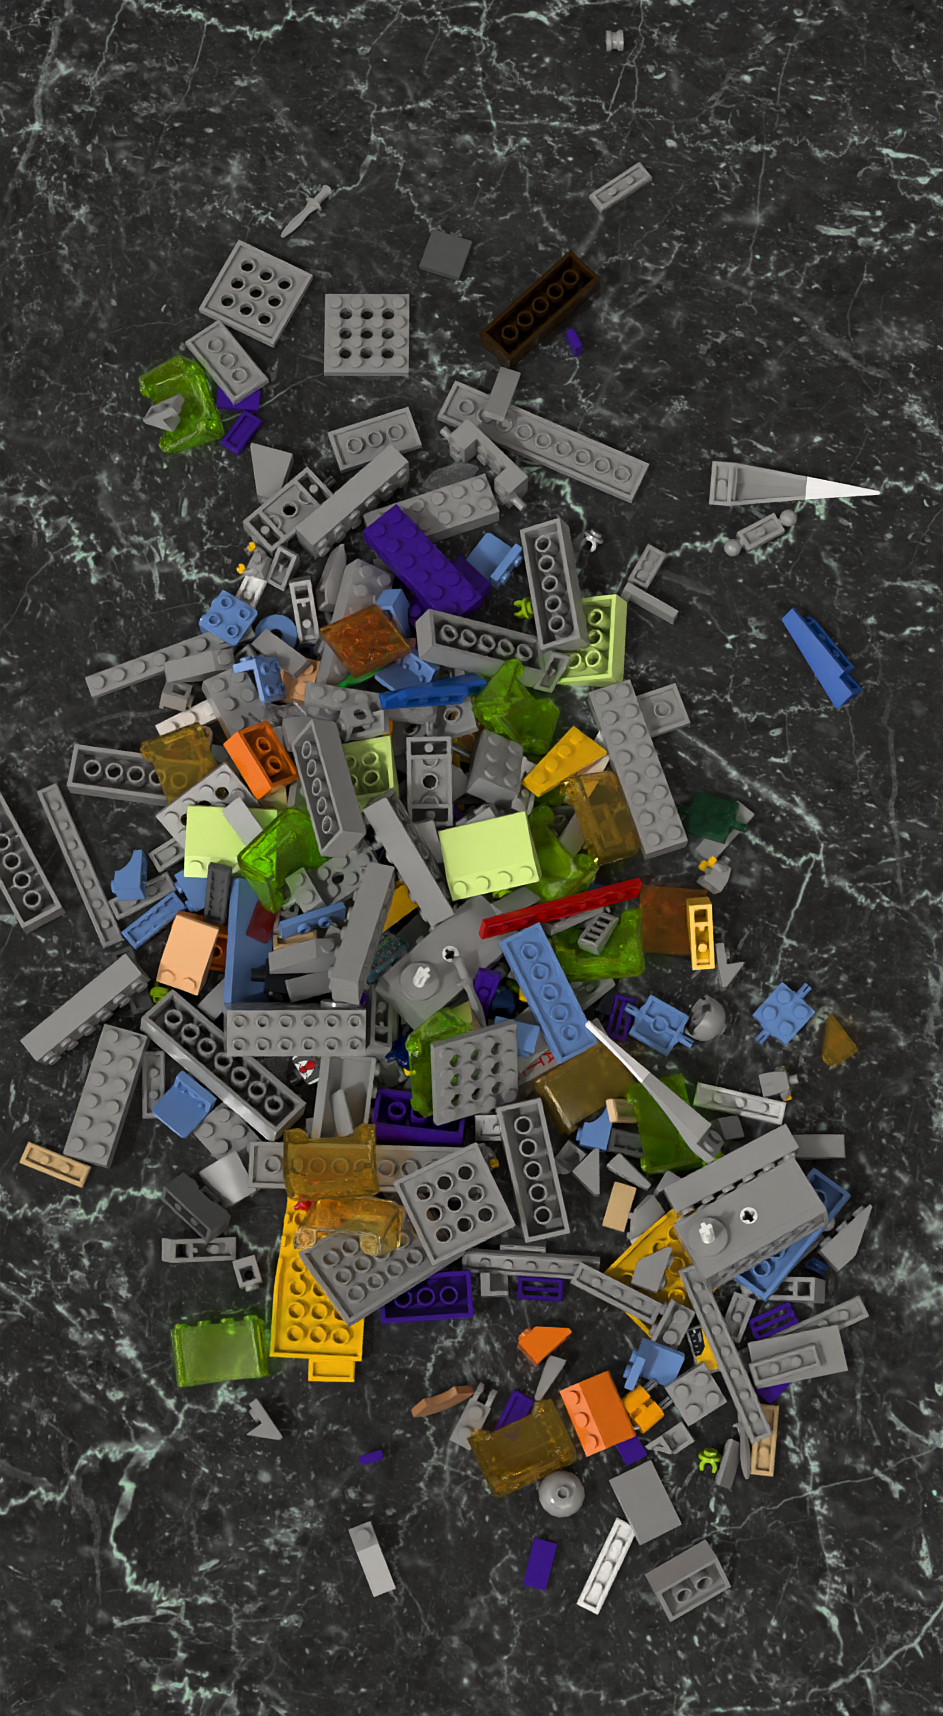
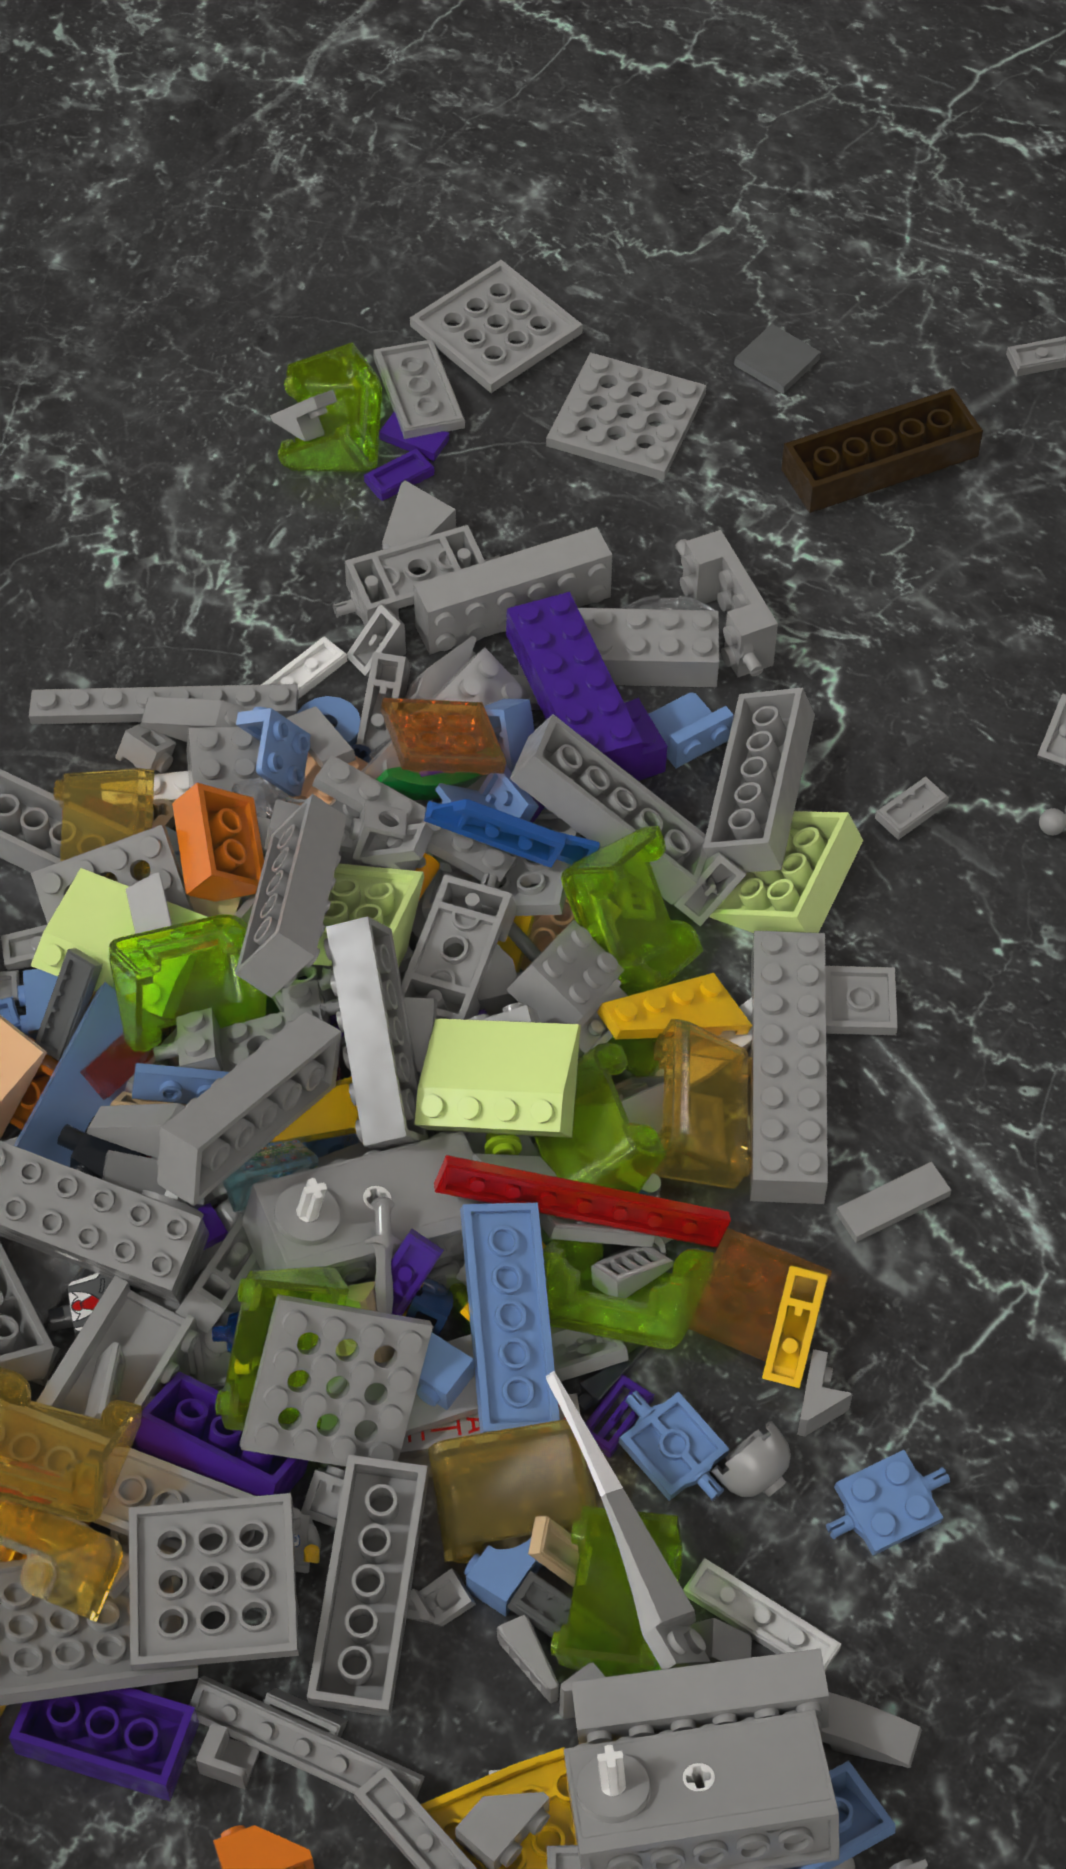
camera: 20 degrees right, 20 degrees down
(228, 618) = (267, 673): medium blue bracket -> none
(259, 563) = (341, 626): light grey piece -> none
(313, 204) = (620, 254): light grey sword -> none
(362, 442) = (619, 526): light grey plate -> none
(502, 394) = (785, 531): light grey tile -> none
(520, 1288) = (296, 1810): dark purple tile -> none
(527, 608) = (705, 801): lime plate -> none
(548, 443) = (834, 614): light grey plate -> none
(573, 342) = (915, 504): dark purple tile -> none
(588, 1173) = (464, 1630): light grey slope -> none
(593, 536) = (846, 743): light grey plate -> none
(619, 1206) = (492, 1709): tan tile -> none
(644, 1216) = (528, 1737): light grey slope -> none
(649, 603) = (897, 852): light grey hinge -> none
(711, 817) = (879, 1170): clear green plate -> none
(715, 875) = (855, 1253): light grey piece -> none
(778, 1083) = (836, 1605): light grey piece -> none
(836, 1044) = (961, 1581): clear yellow slope -> none

